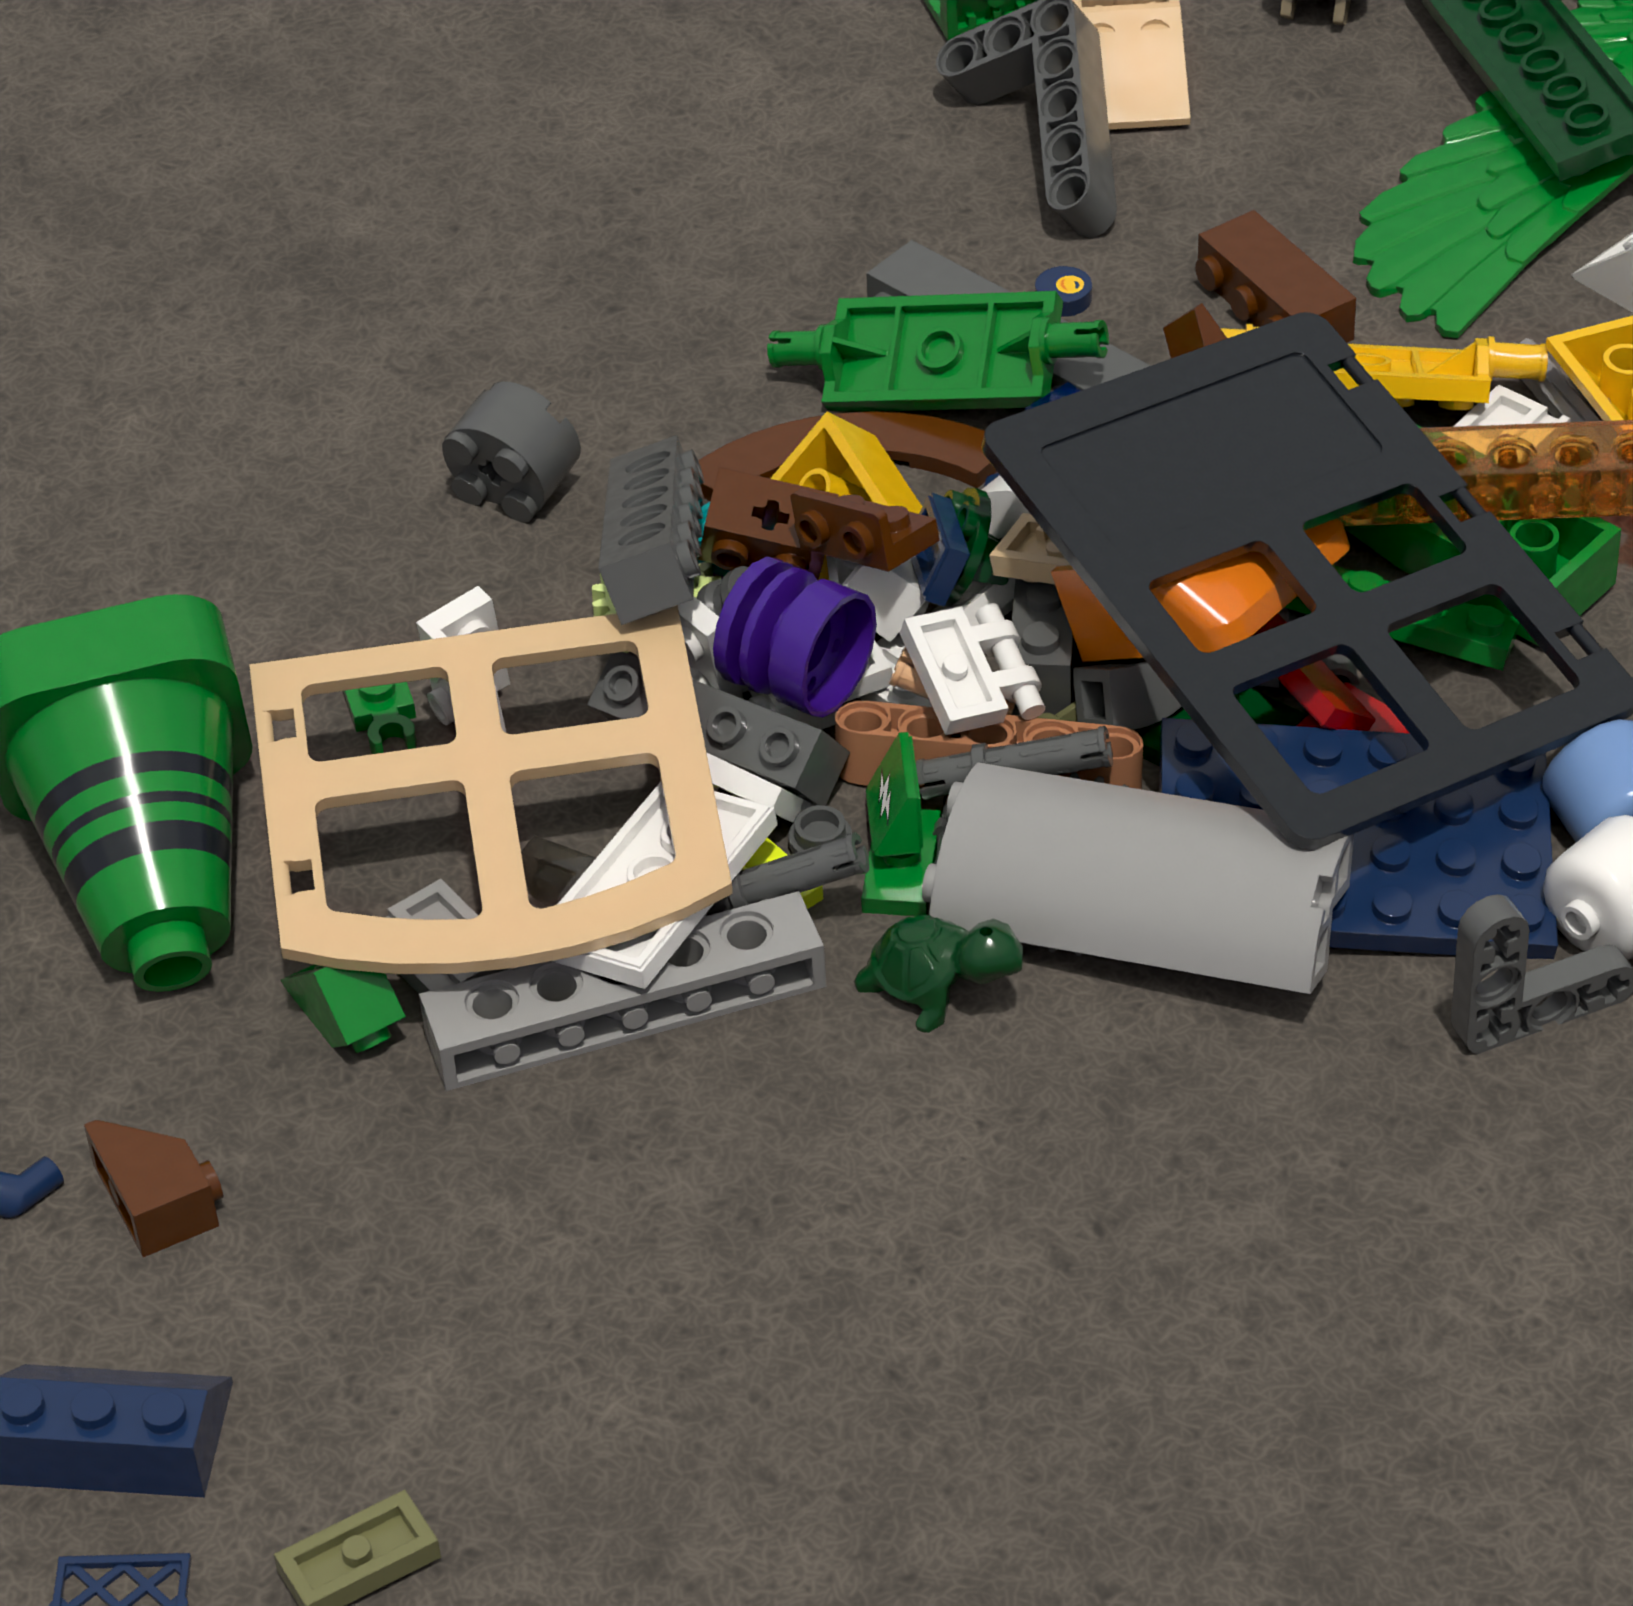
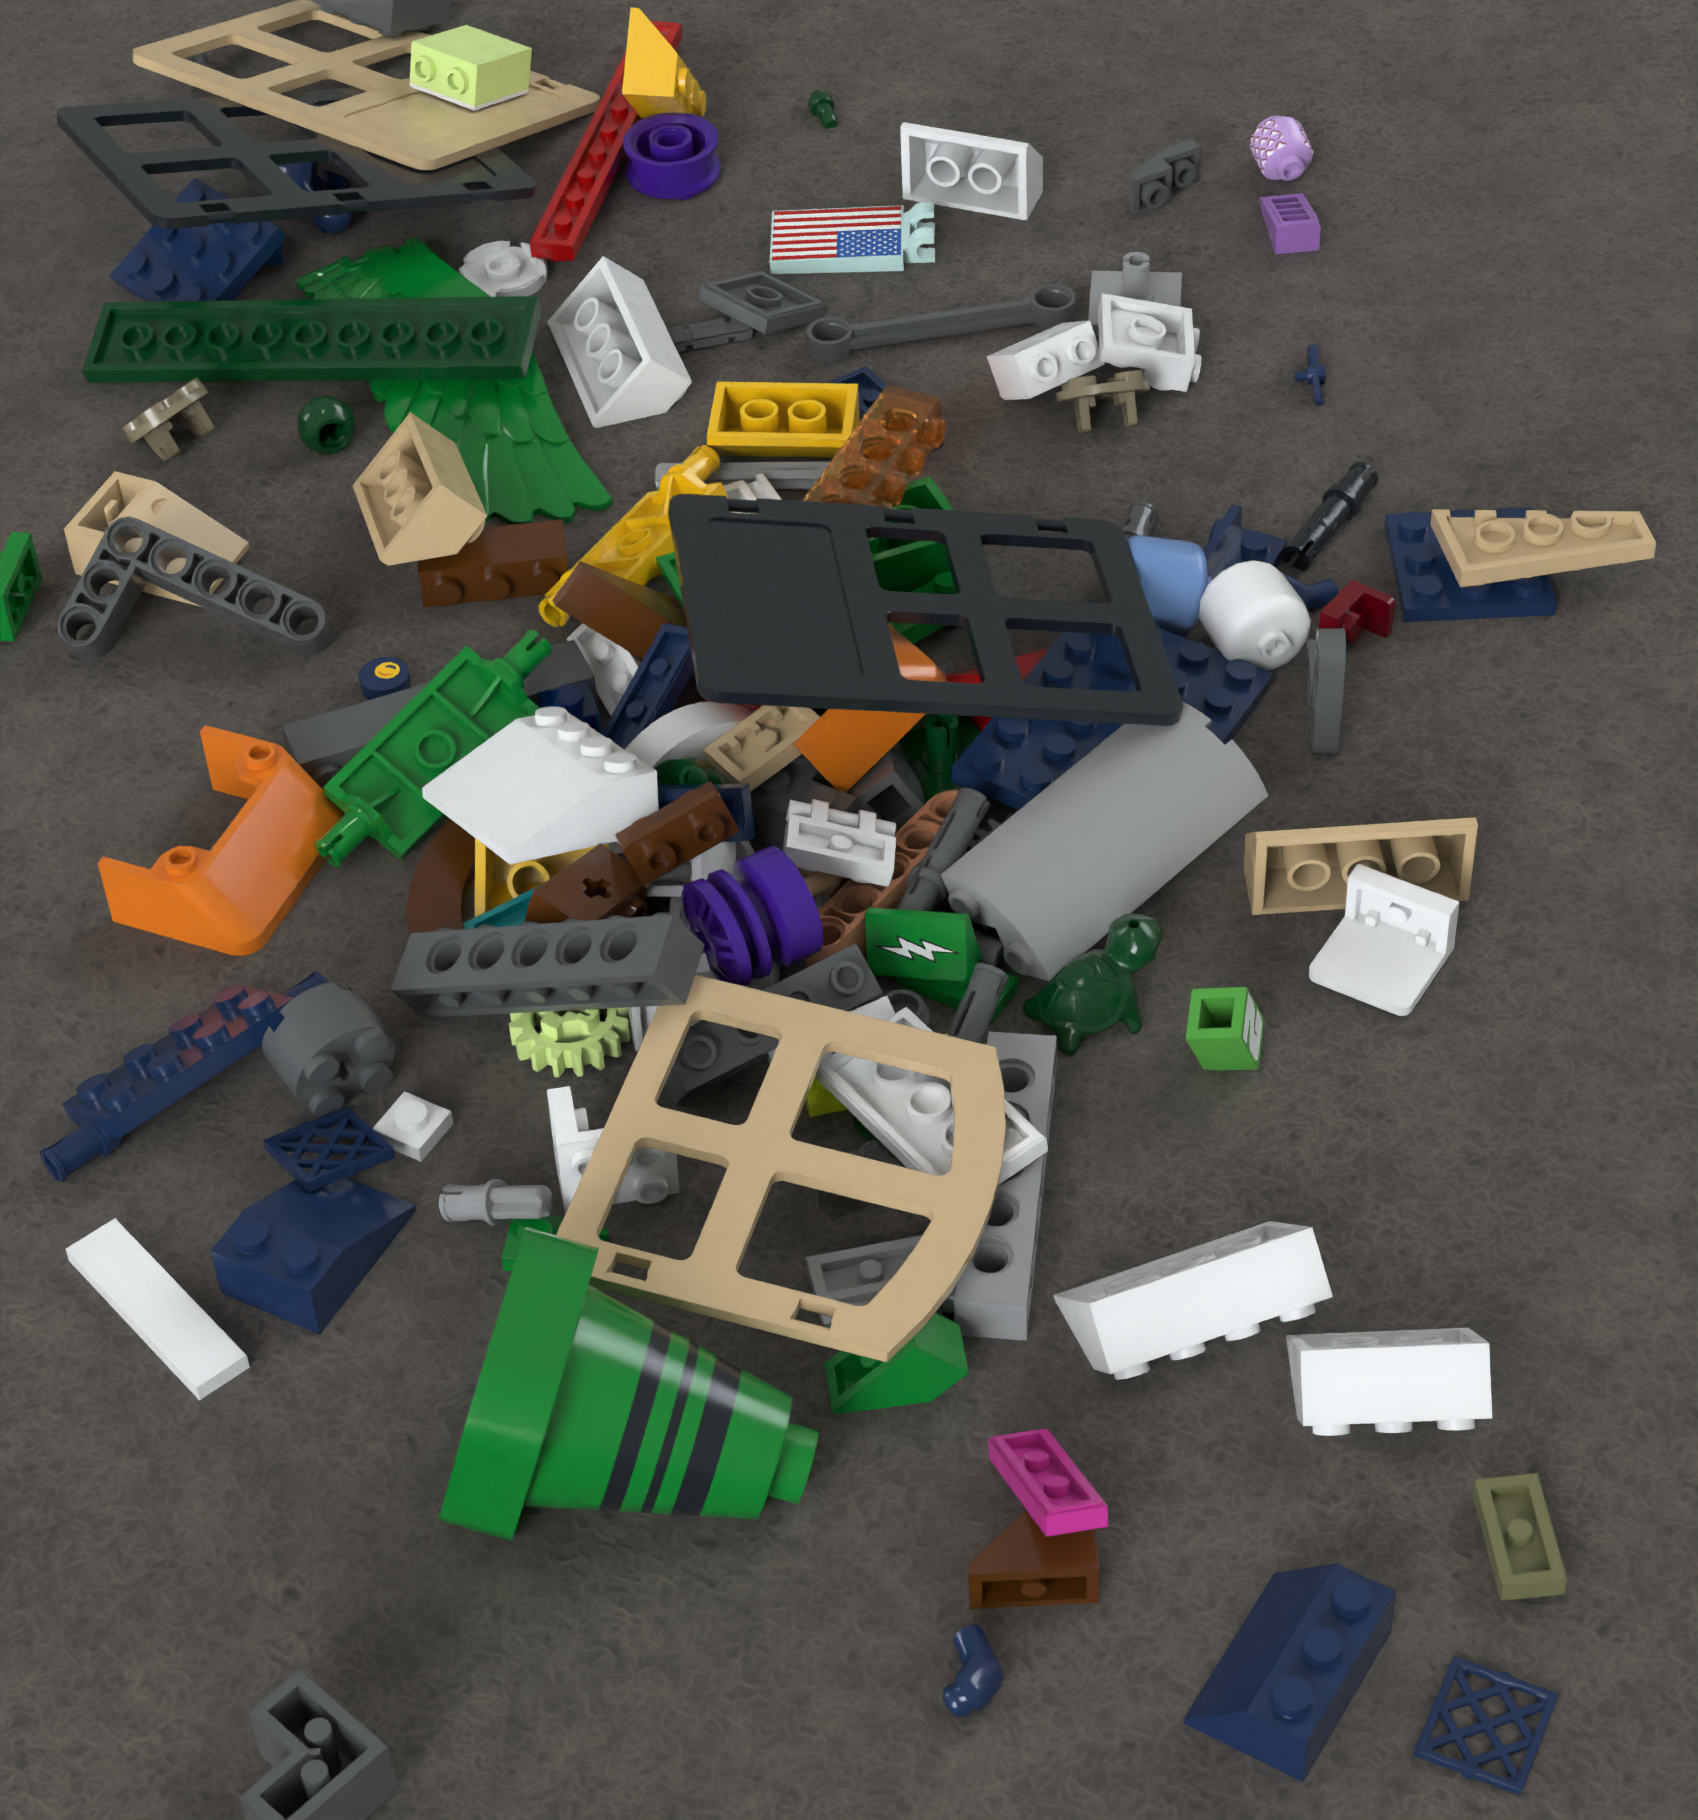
camera: 65 degrees left, 0 degrees up
(177, 492) = (157, 1309): none -> white tile
(224, 1144) = (1047, 1482): none -> dark pink tile
(292, 546) = (306, 1249): none -> dark blue slope
(358, 509) = (377, 1154): none -> dark blue window
(395, 626) = (494, 1202): none -> light grey axle
(452, 371) = (166, 1071): none -> dark blue plate
(478, 557) = (414, 1125): none -> white plate
(516, 1377) = (1390, 1379): none -> white slope
(544, 1187) = (1196, 1297): none -> white slope
(727, 304) = (254, 871): none -> orange windscreen
(897, 432) = (545, 788): none -> white slope
(924, 1080) = (1225, 1028): none -> bright green brick
(1153, 1185) = (1387, 942): none -> white bracket
(1266, 1110) = (1312, 865): none -> tan slope
(1303, 184) = (419, 496): none -> tan slope
(1398, 89) = (326, 425): none -> dark green piece

